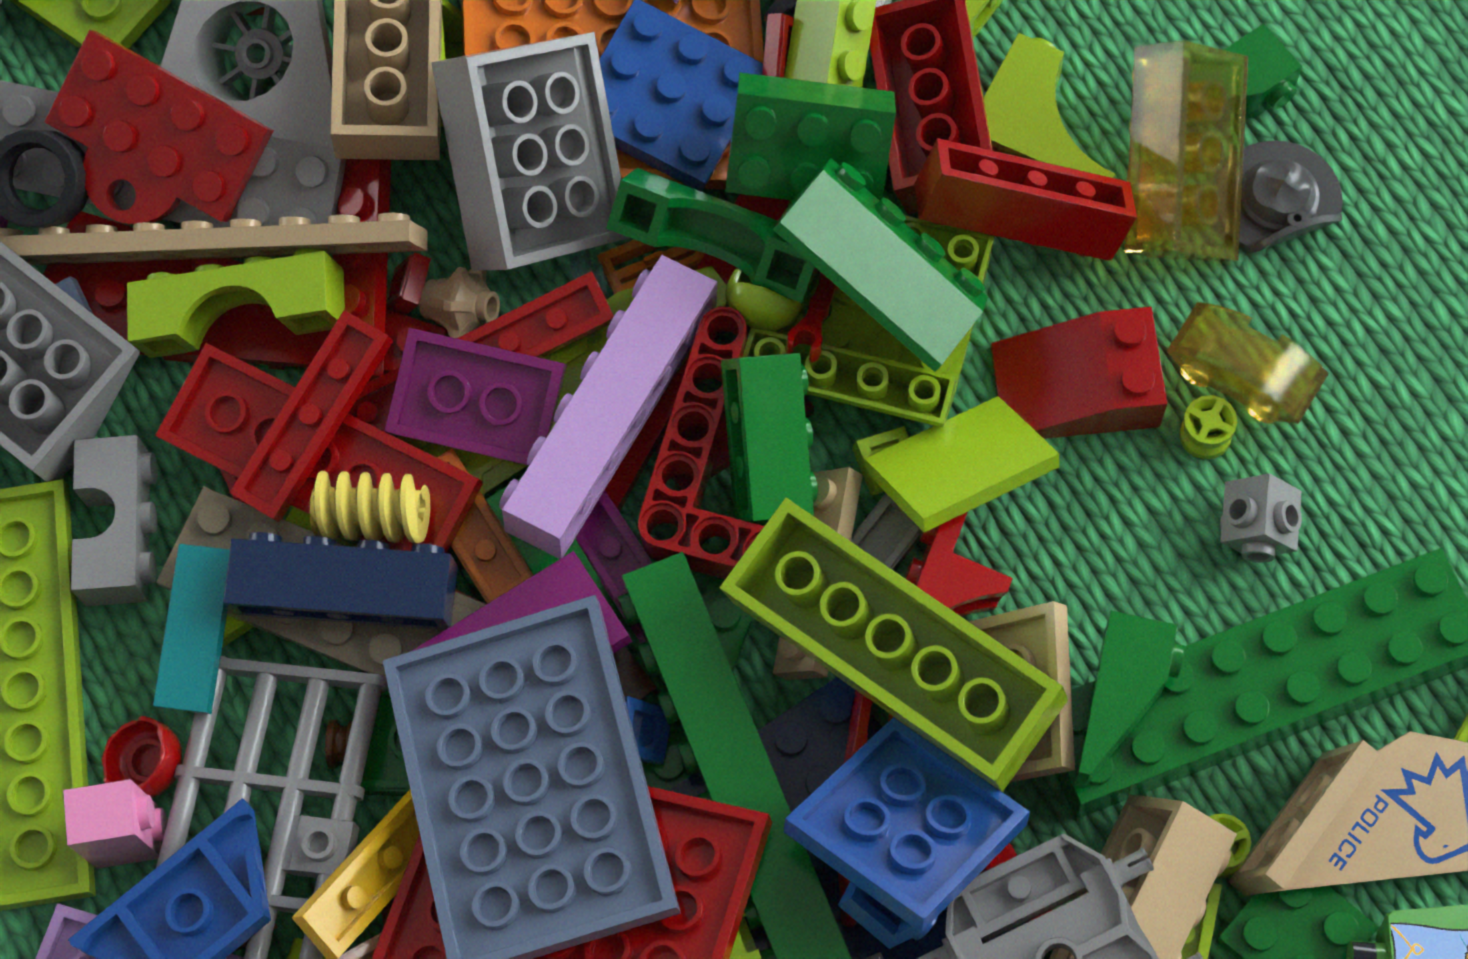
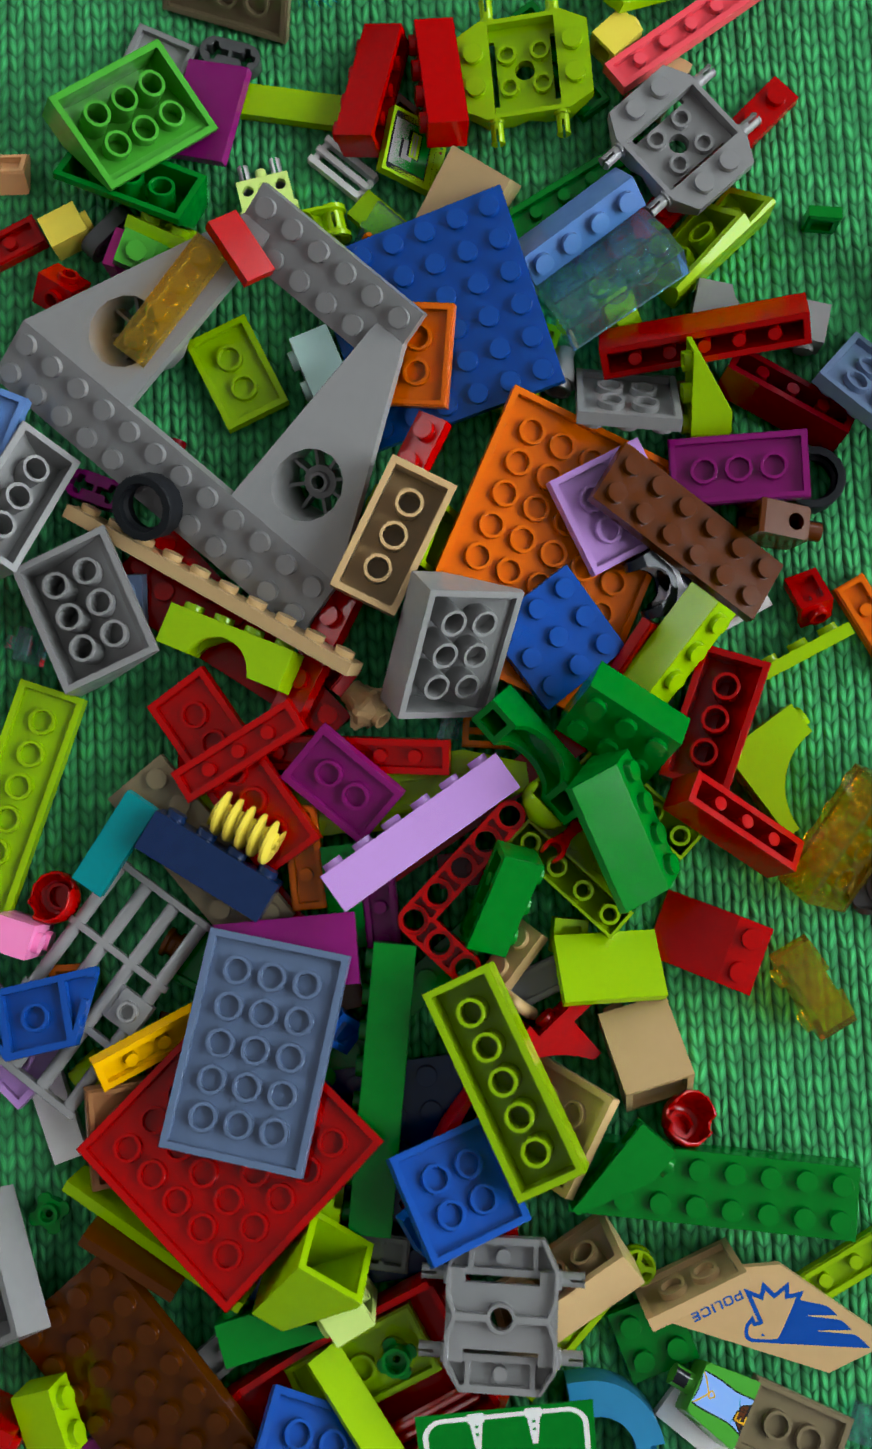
camera: 25 degrees right, 15 degrees up
(118, 561) = (96, 768): light grey arch -> none
(154, 134) = (227, 515): red plate -> none
(1077, 550) = (645, 1052): none -> tan slope
(1181, 599) = (688, 1118): none -> red hair
(1211, 415) = (772, 1017): lime wheel -> none
(1261, 517) = (766, 1088): light grey brick -> none

